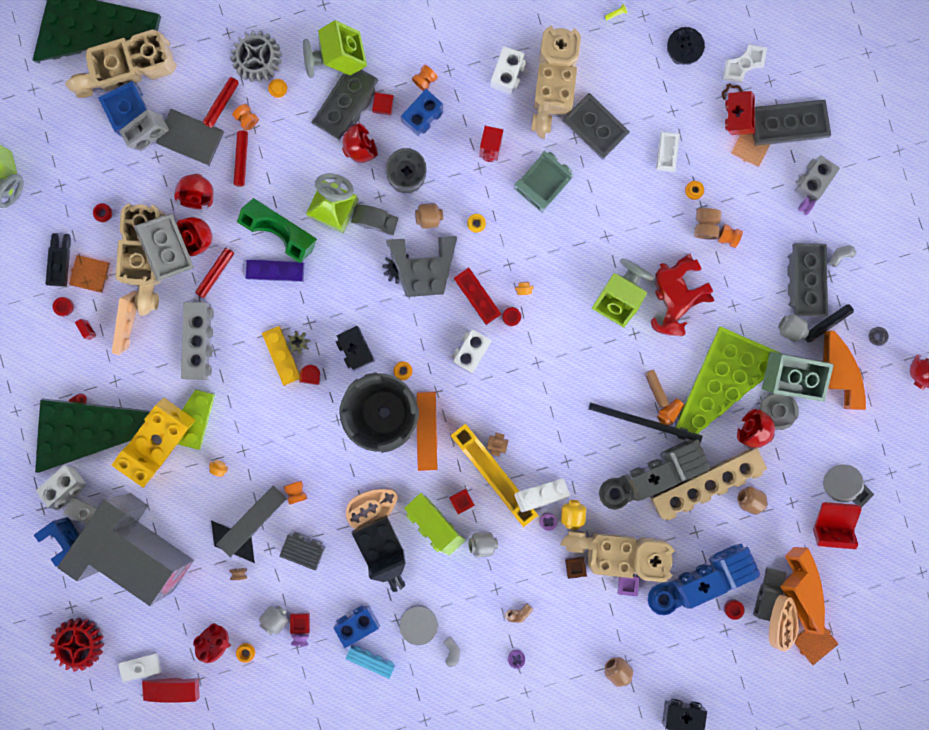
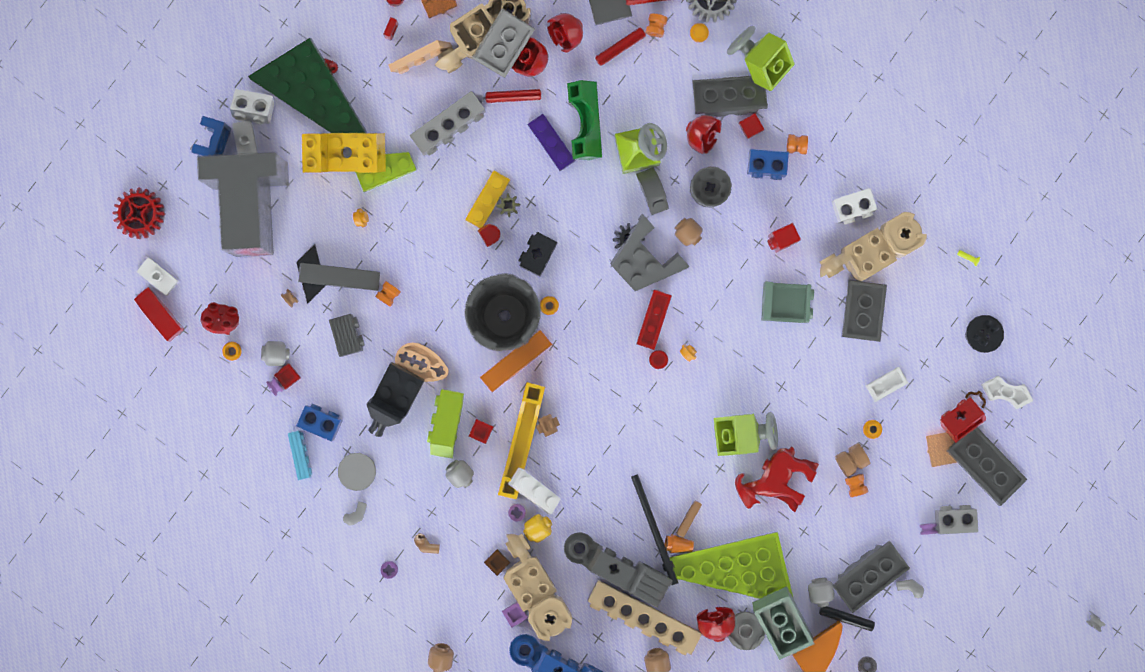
camera: 45 degrees right, 0 degrees up
(475, 353) = (606, 354): white brick -> none
(478, 217) = (716, 269): yellow plate -> none

